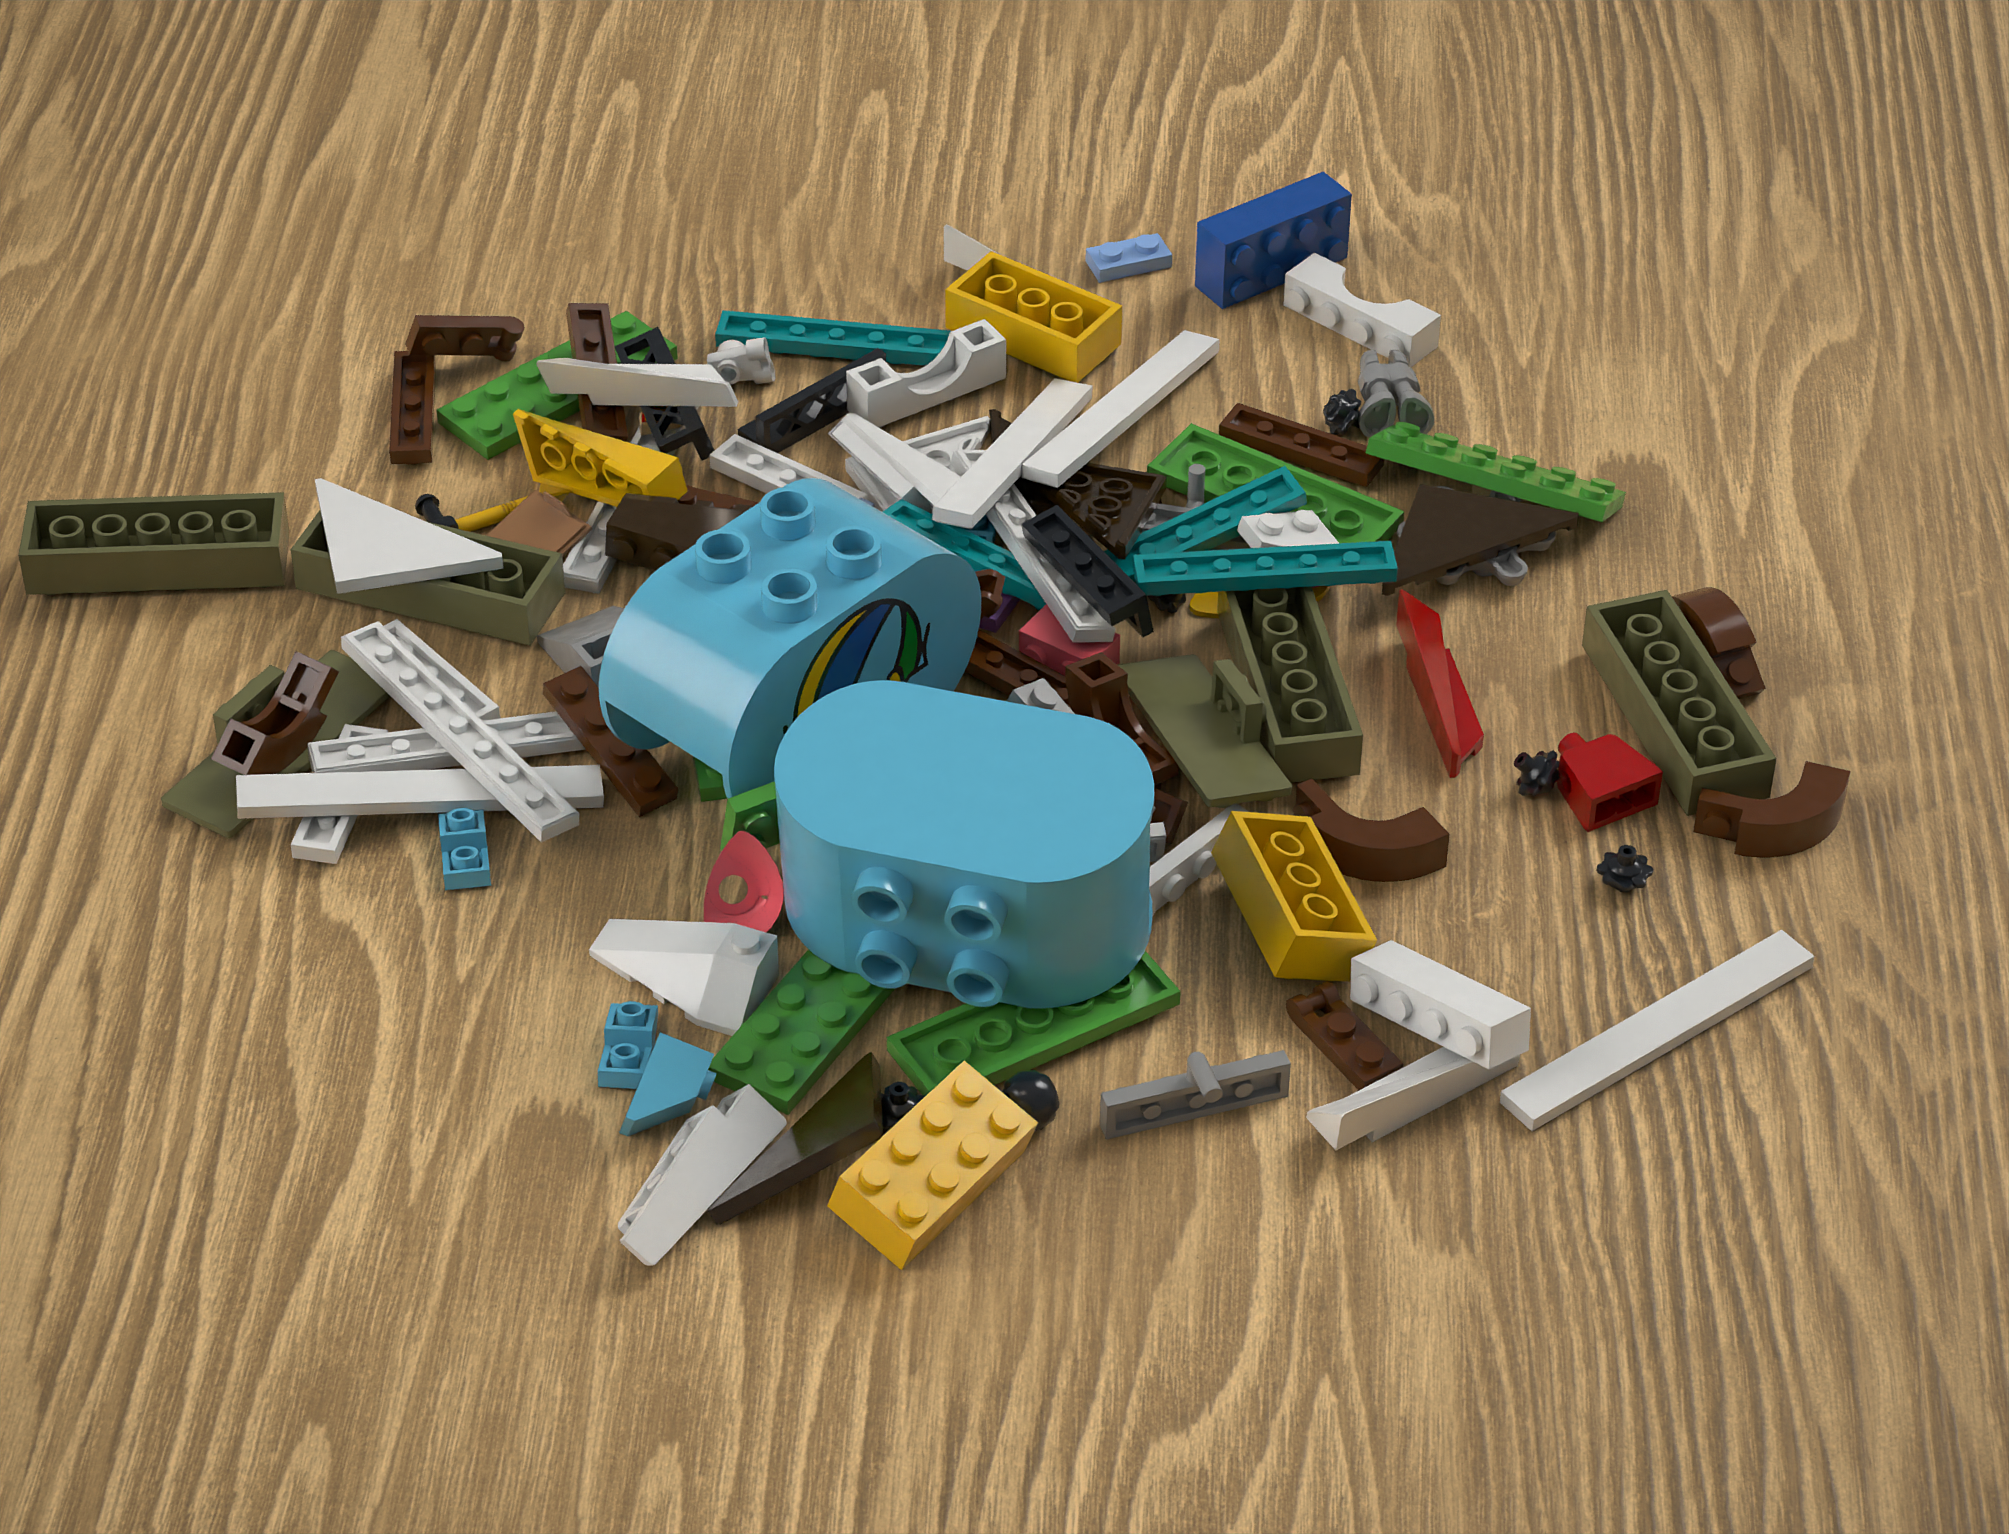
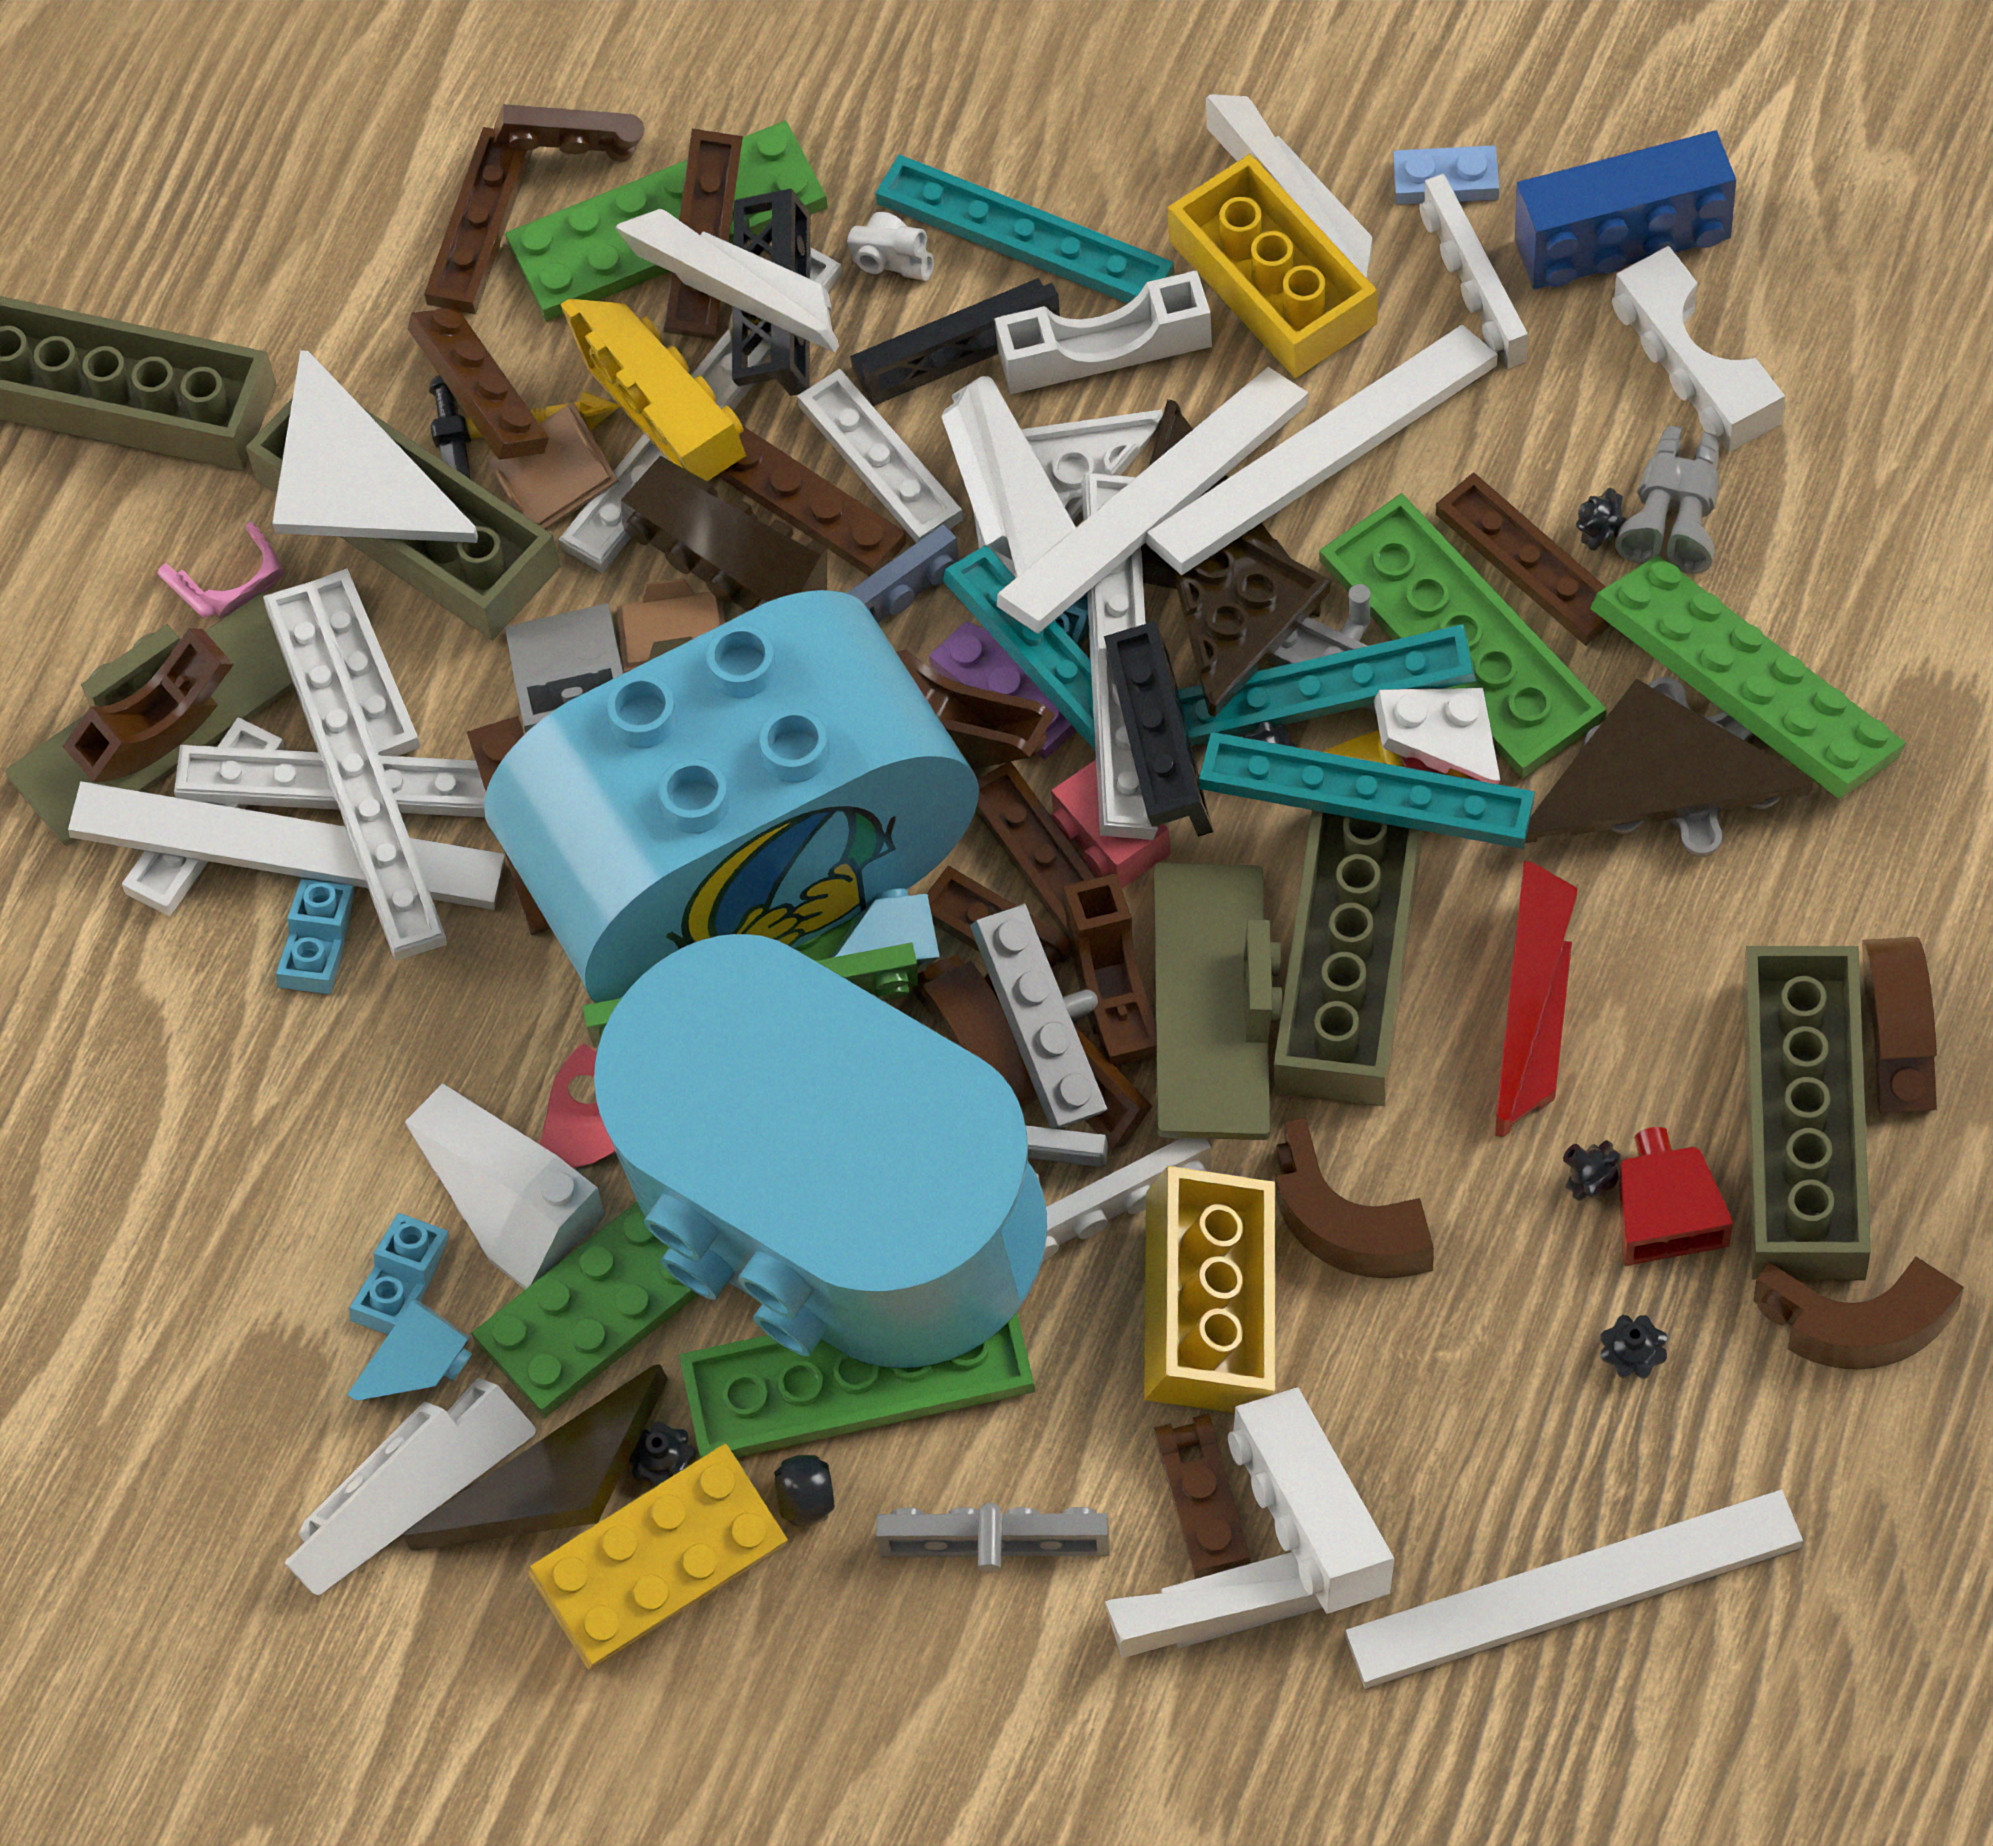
camera: 25 degrees right, 20 degrees up
(331, 640) = (224, 602): none -> bright pink helmet
(461, 493) = (478, 383): none -> reddish brown plate
(1179, 298) = (1480, 283): none -> white plate

